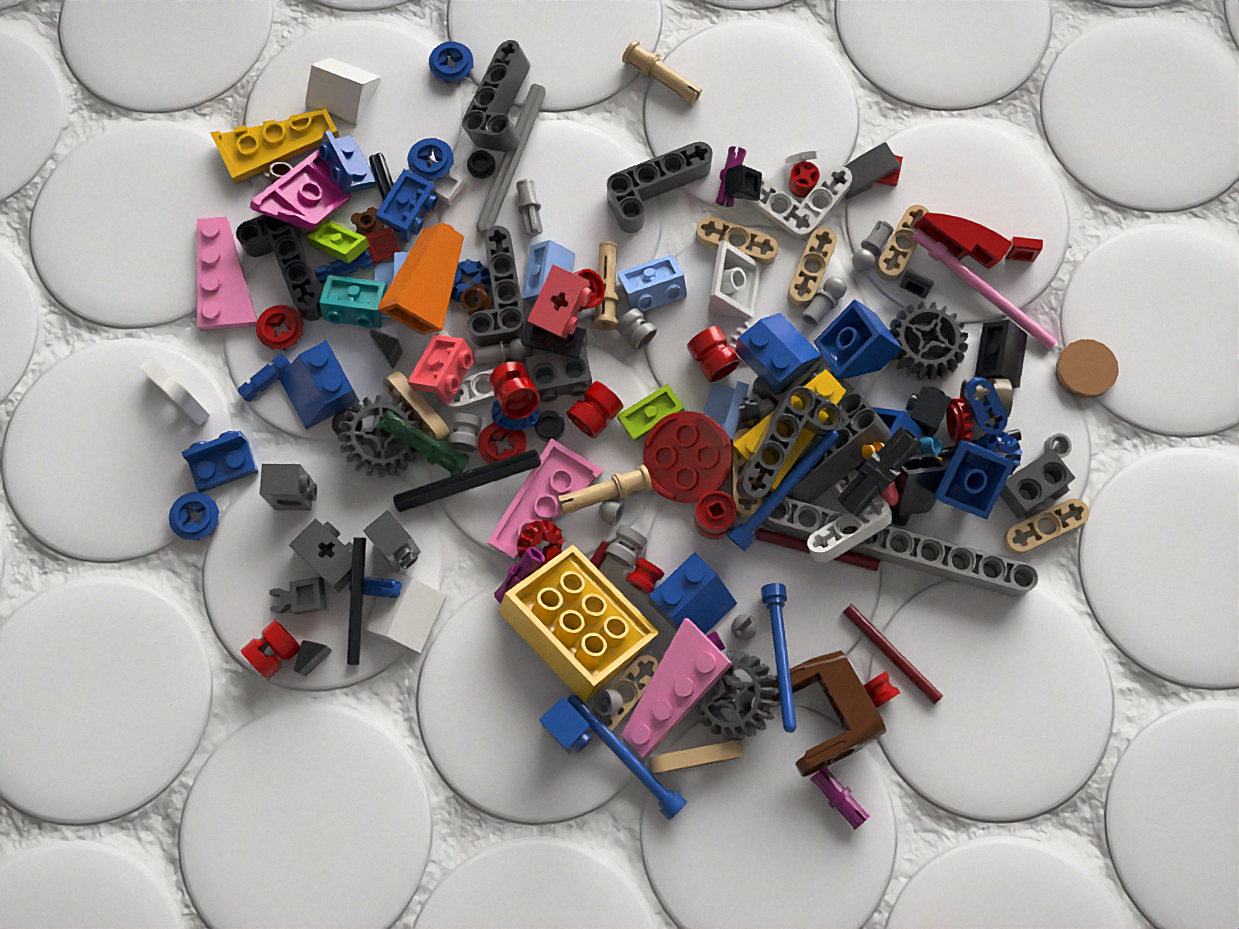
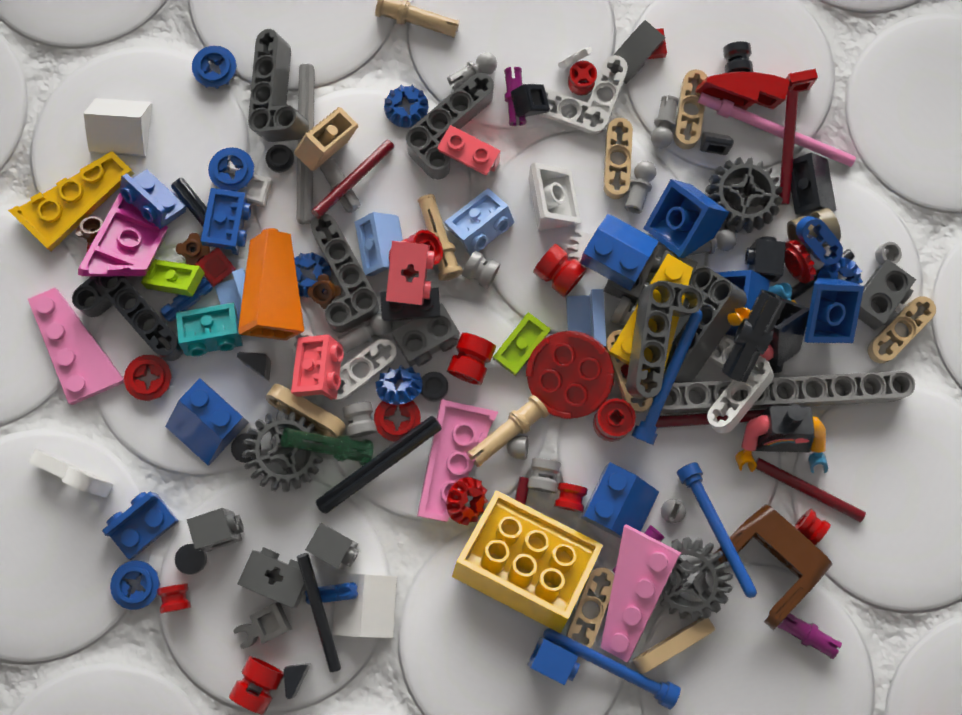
camera: 25 degrees left, 5 degrees up
(225, 540) = (174, 598): none -> red wheel
(255, 510) = (190, 560): none -> black tile
(264, 378) = (151, 431): blue axle -> none
(514, 390) = (393, 367): red wheel -> none
(525, 567) = (459, 536): magenta pin -> none
(530, 157) = (325, 139): none -> tan brick
(542, 204) = (352, 179): none -> dark red bar
(608, 702) = (581, 625): light grey hinge -> none
(609, 158) = (397, 114): none -> blue gear
(665, 212) = (469, 150): none -> coral bracket
(712, 136) = (485, 63): none -> light grey pin
(732, 229) = (549, 146): tan beam -> none
(749, 411) = (614, 315): black plate -> none
(884, 582) = (784, 430): none -> torso
(891, 379) = (724, 241): none -> light grey pin
(969, 205) = (737, 57): none -> black wheel
(989, 307) = (788, 145): none -> dark red bar
(1087, 368) = (889, 173): medium nougat tile -> none

